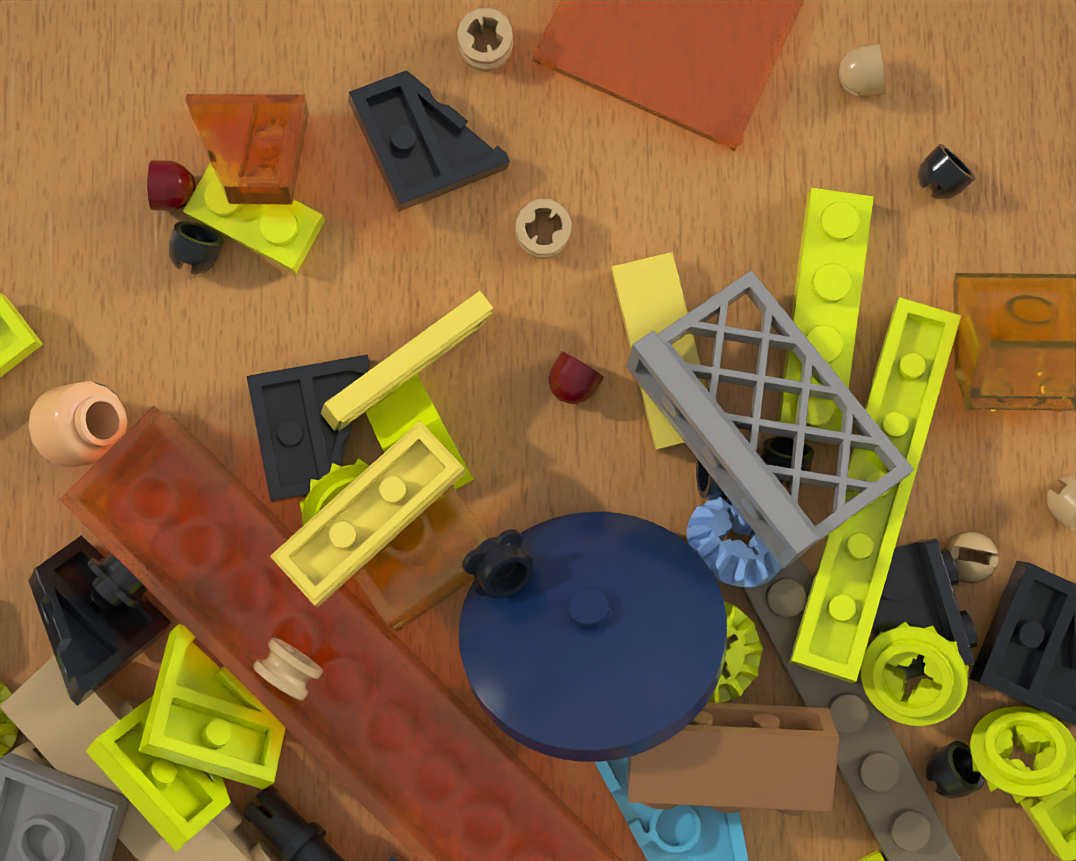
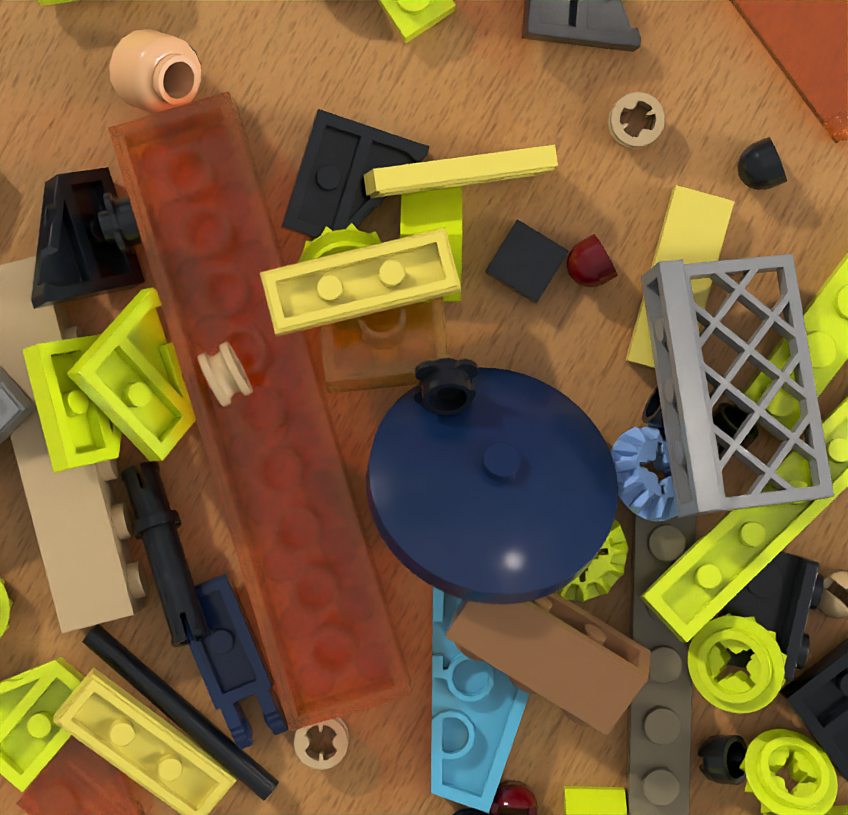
camera: 30 degrees right, 5 degrees up
(514, 409) = (526, 261): none -> black tile
(678, 207) = (761, 166): none -> black hinge

